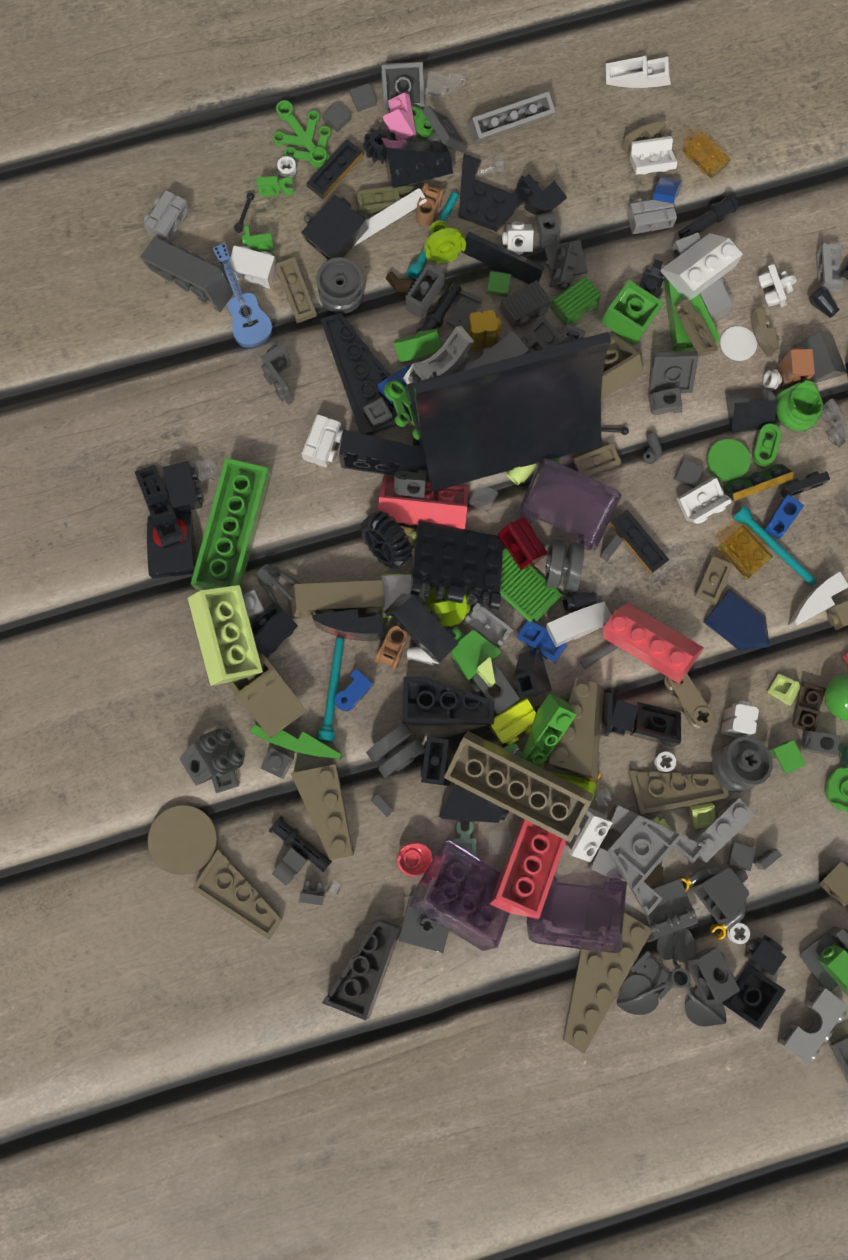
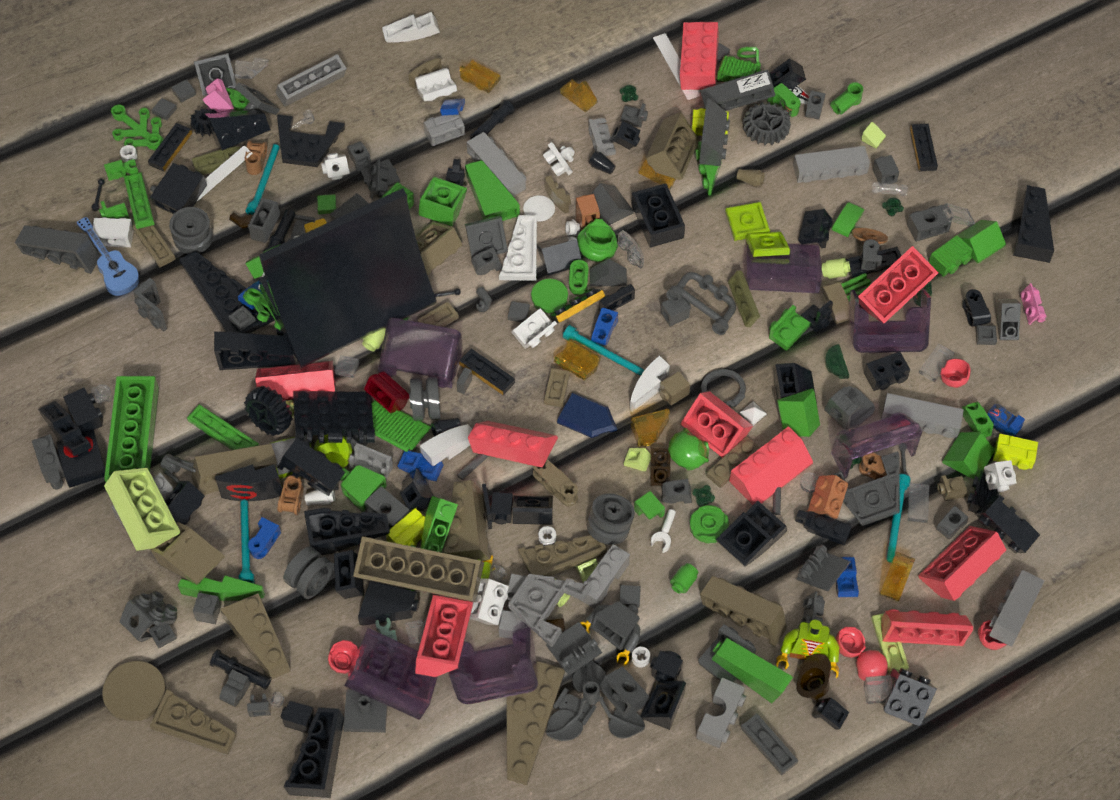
camera: 10 degrees left, 20 degrees down
(134, 541) = (49, 461): none -> dark grey brick
(166, 216) = (31, 208): light grey brick -> none
(288, 232) = (139, 200): none -> bright green tile
(322, 441) = (198, 351): white brick -> none
(331, 546) = (220, 429): none -> bright green tile
(351, 915) = (297, 716): none -> black brick
(382, 805) = (307, 622): dark grey tile -> none
(410, 483) = (280, 363): dark grey leg -> none
(444, 244) = (273, 182): lime tile -> none
(485, 671) = (373, 491): yellowish green slope -> none
(502, 259) = (324, 184): black tile -> none
(540, 200) = (347, 135): black brick -> none
(696, 328) = (496, 200): dark tan hinge -> none
(702, 265) = (492, 154): white slope -> none
(709, 397) = (521, 254): none -> white wing
(740, 720) = (600, 481): white brick -> none
(767, 858) = (651, 590): dark grey tile -> none
(797, 784) = (663, 536): none -> white piece
(800, 449) = (608, 274): none -> dark grey slope
(806, 852) = (684, 578): none -> bright green brick
(807, 656) = (649, 427): none -> clear yellow slope
(816, 205) = (579, 94): none -> clear yellow slope

